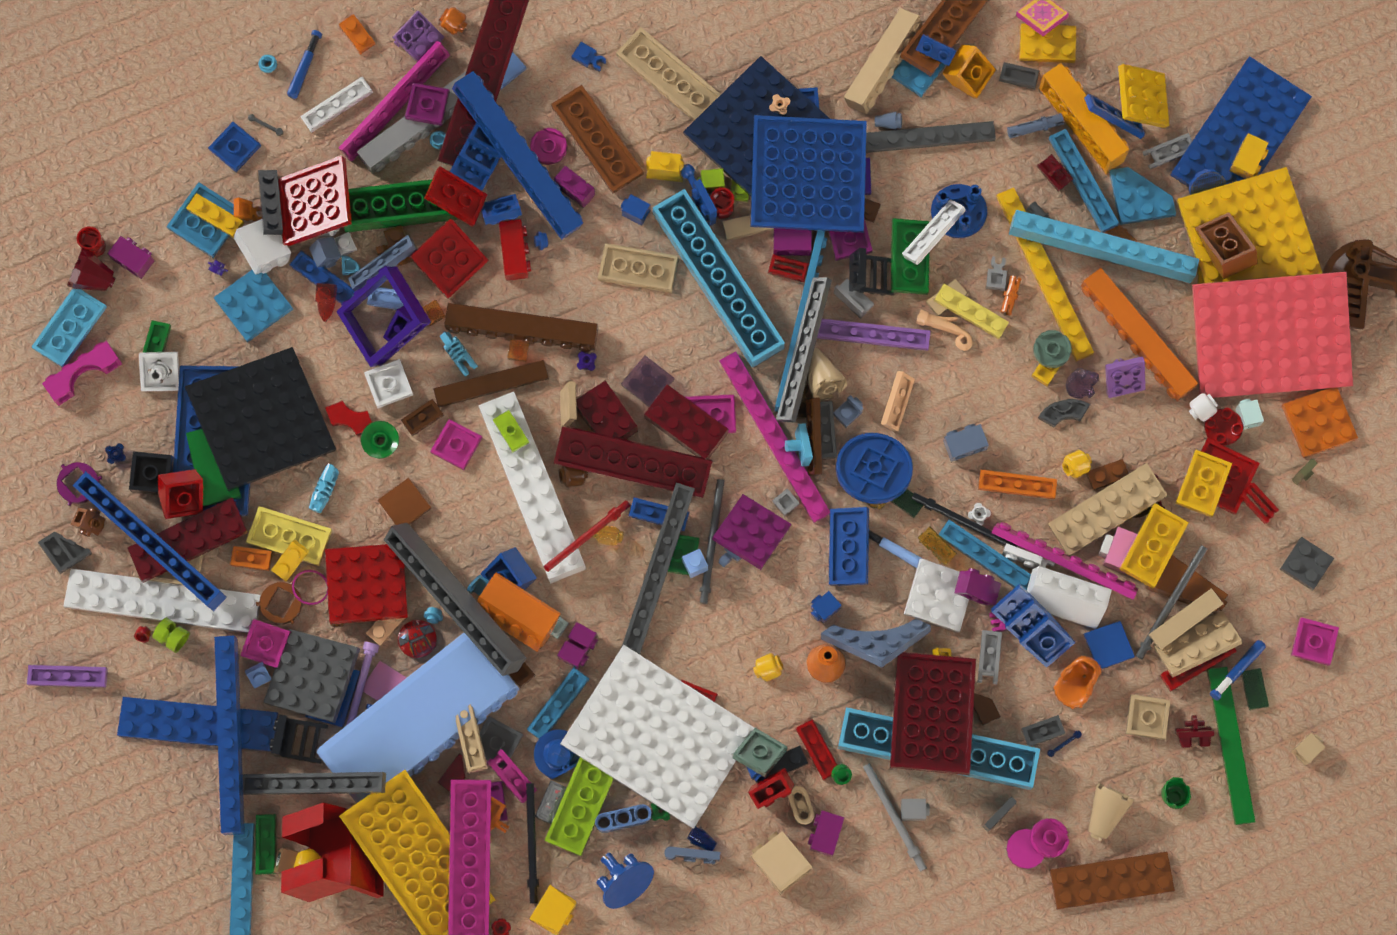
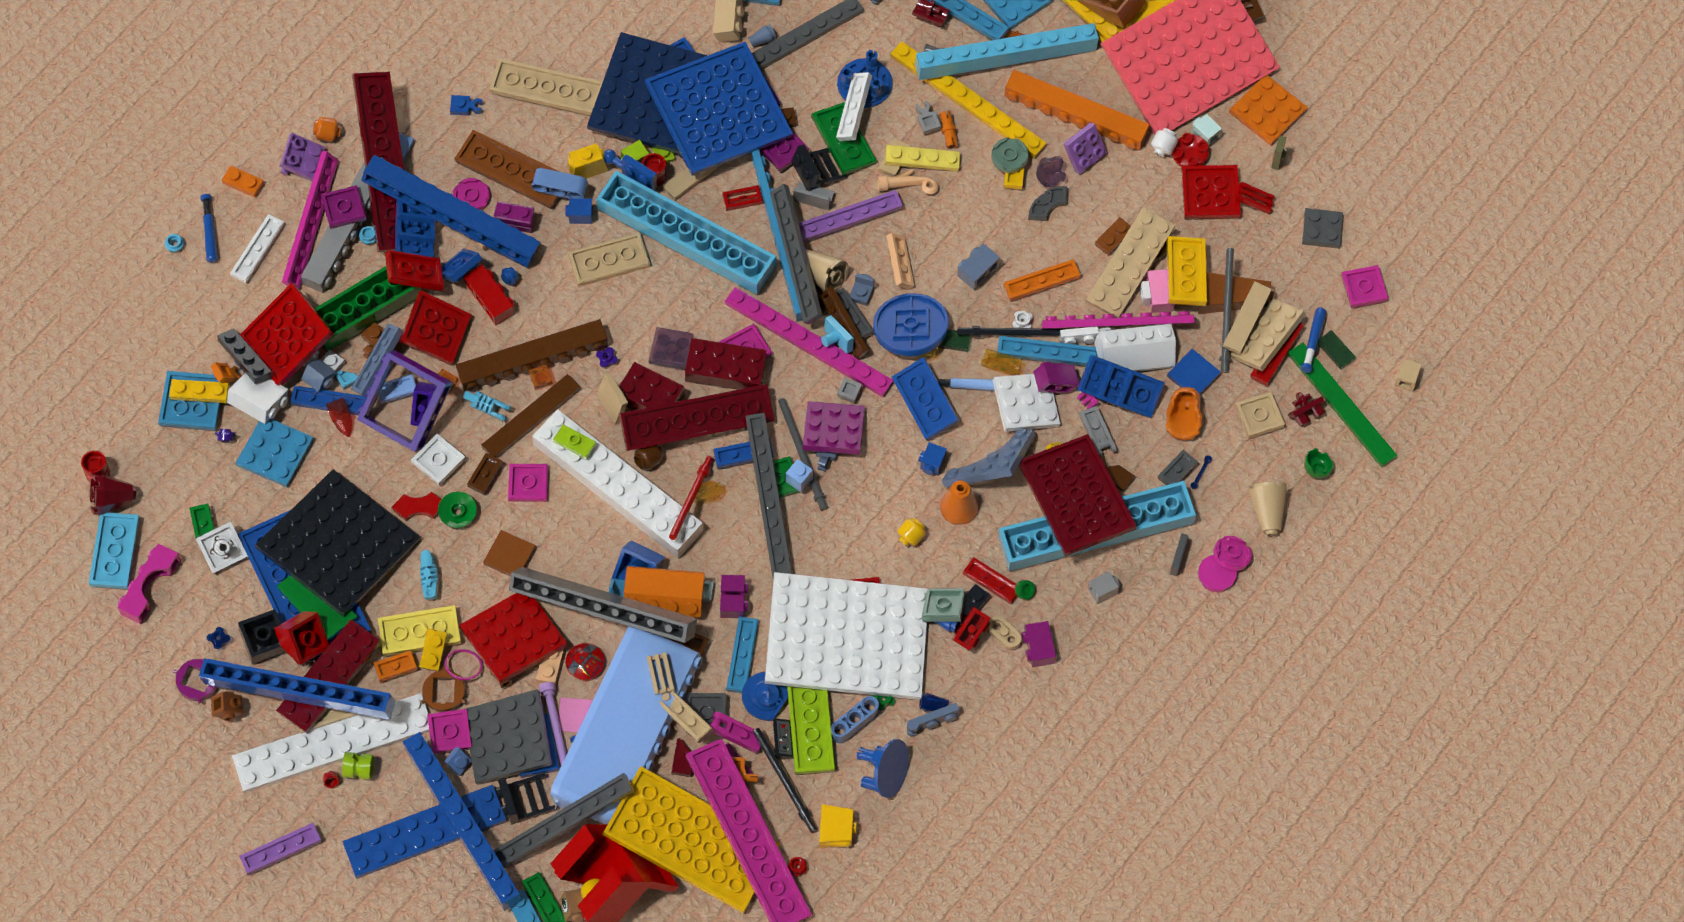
camera: 30 degrees left, 10 degrees down
(62, 551) = (216, 745): dark grey wing -> none
(131, 257) = (139, 463): magenta brick -> none
(234, 147) = (182, 327): blue tile -> none
(279, 131) = (216, 295): dark grey hinge -> none
(433, 615) = (589, 633): medium azure plate -> none
(469, 689) = (656, 657): none -> tan tile
(629, 176) = (559, 183): none -> medium blue beam
(779, 109) = (661, 67): light nougat plate -> none
(780, 862) = (1014, 686): tan slope -> none
(792, 242) = (734, 173): magenta brick -> none
(913, 851) = (1121, 622): light grey bar -> none
(1077, 464) = (1083, 239): yellow head -> none
(1111, 880) = (1304, 563): dark orange plate -> none
(1203, 483) = (1199, 202): yellow plate -> none

